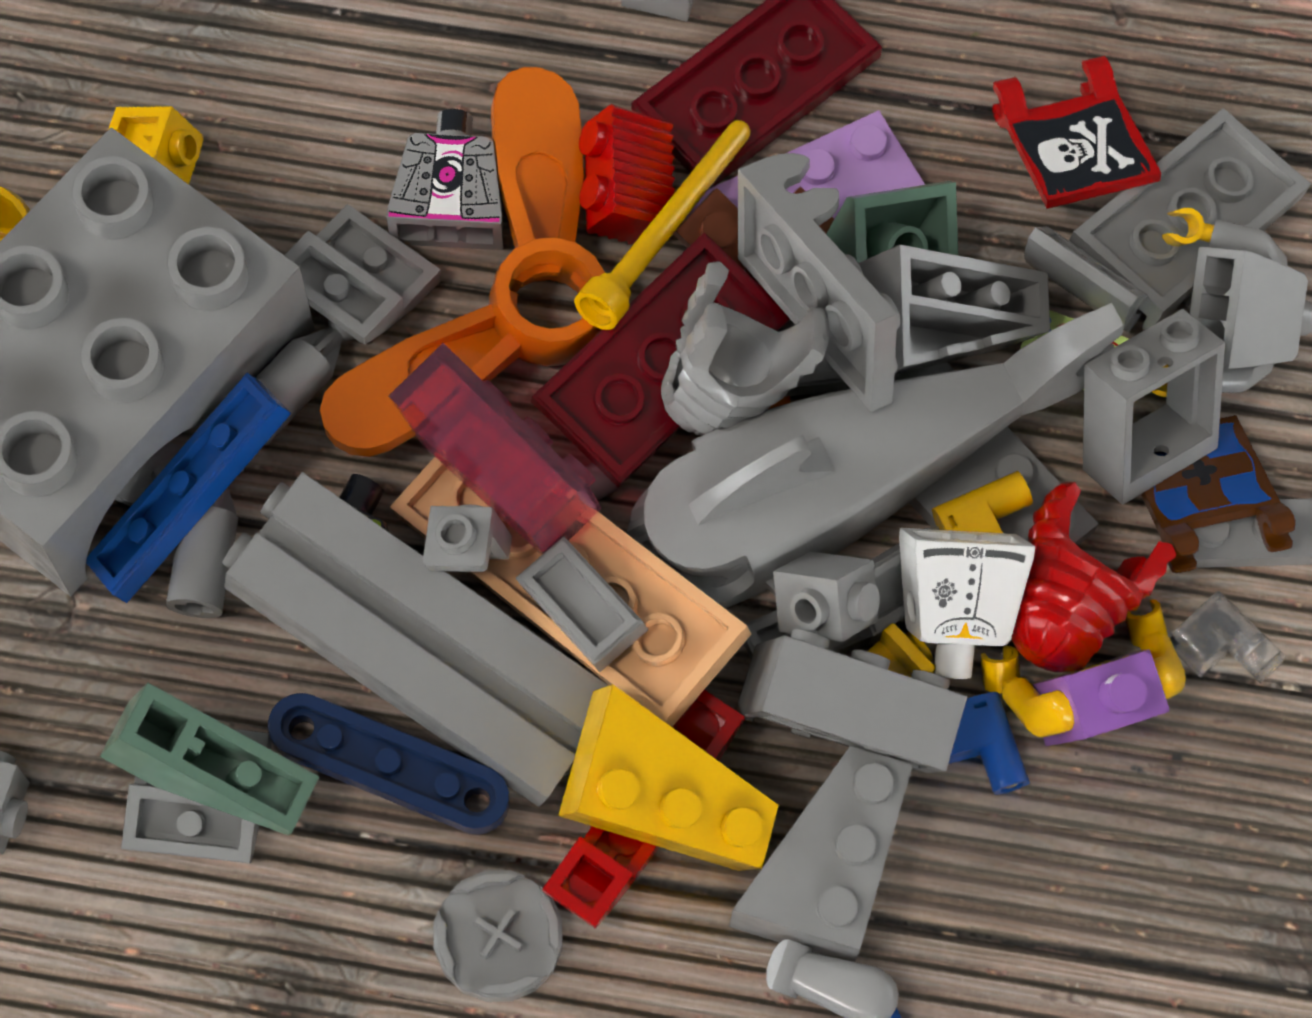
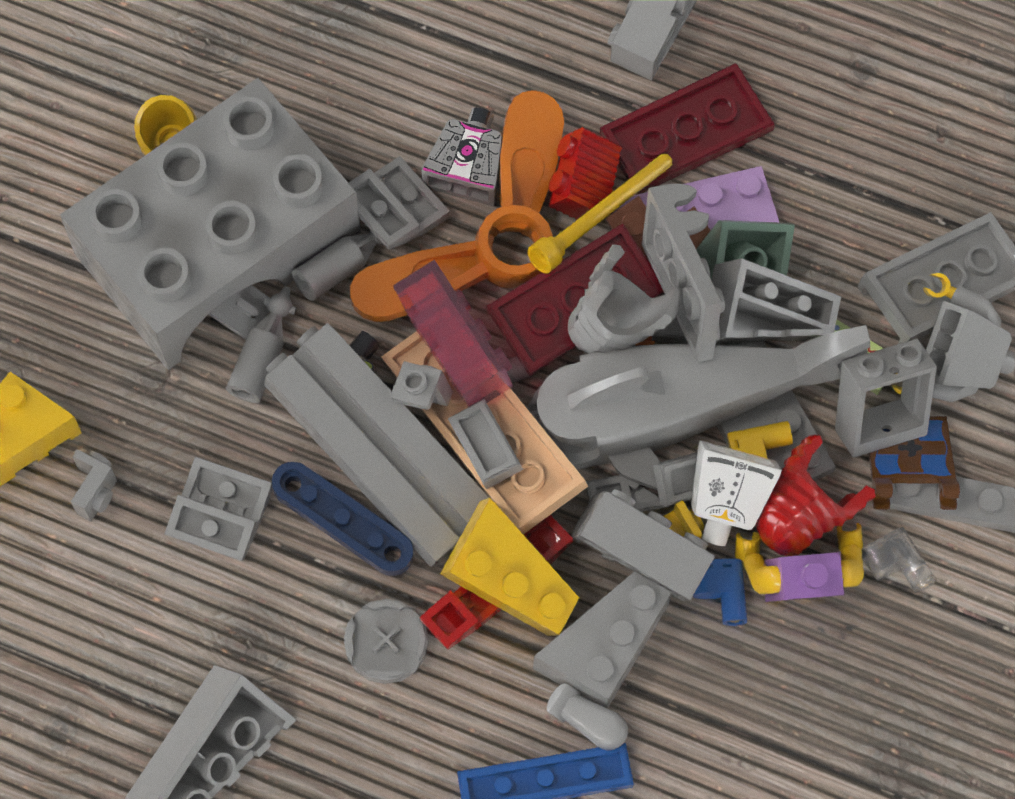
camera: 15 degrees right, 0 degrees up
(162, 135) = (290, 88): yellow bracket -> none
(187, 487) = (255, 316): blue tile -> none
(207, 761) = (229, 491): sand green slope -> none
(826, 595) = (641, 472): light grey brick -> none
(1077, 144) = (886, 216): flag -> none
(1083, 275) = (865, 304): light grey slope -> none

